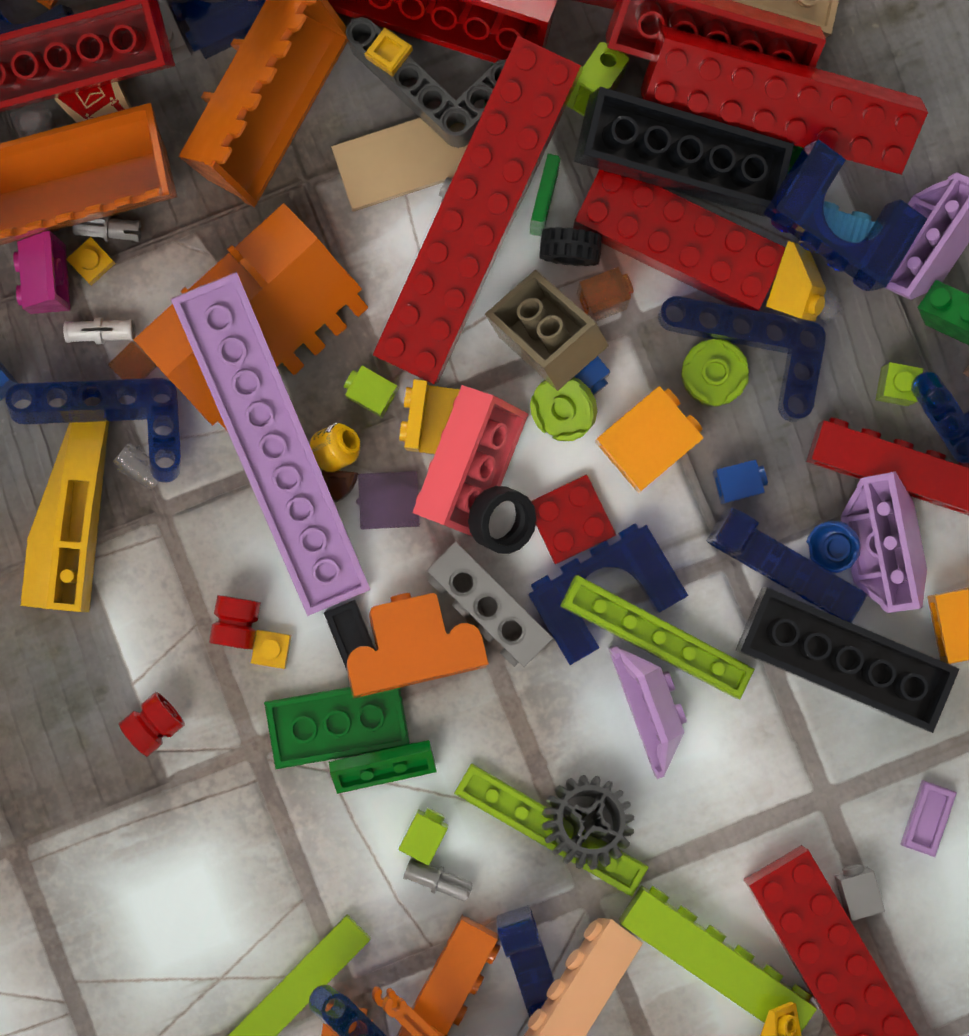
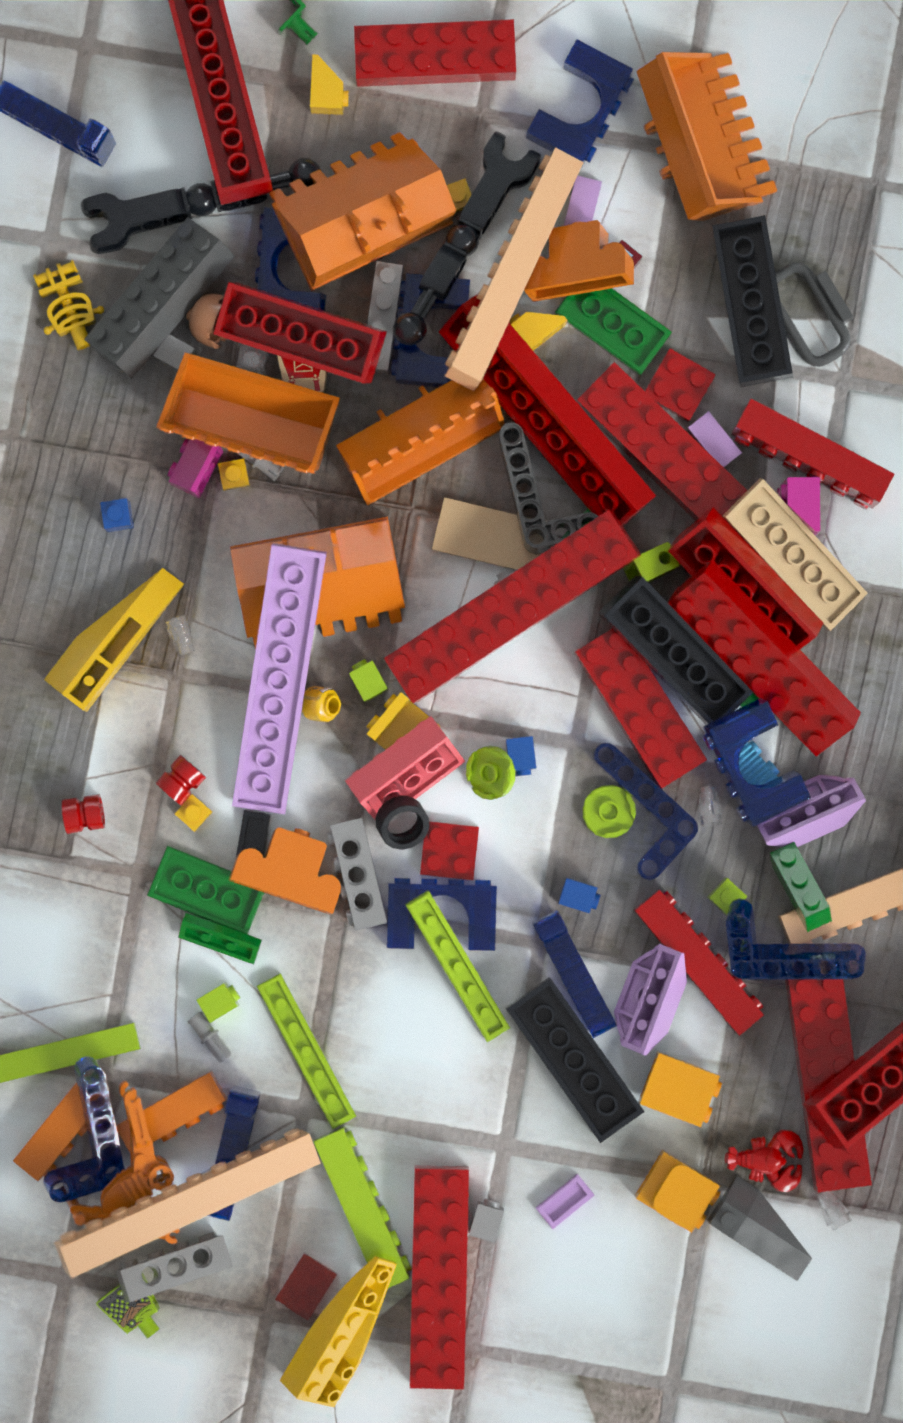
camera: 25 degrees right, 0 degrees up
(97, 330) = (195, 516): white pin -> none
(107, 410) = (185, 585): clear blue beam -> none
(132, 363) = (218, 562): clear orange tile -> none
(340, 483) = (308, 730): reddish brown tile -> none
(388, 51) = (520, 460): yellow tile -> none
(388, 500) = (334, 760): clear purple piece -> none
(545, 194) = (566, 621): green tile -> none
(547, 330) = (510, 714): dark tan brick -> none
(570, 246) = (562, 667): black tyre -> none
(599, 830) = (339, 1069): dark grey gear -> none
(605, 294) = (565, 714): clear orange brick -> none
(650, 438) = (535, 829): light orange brick -> none
(651, 706) = (425, 1009): lavender wedge -> none
(798, 285) = (698, 788): yellow slope -> none
(834, 546) = (614, 978): blue hair -> none

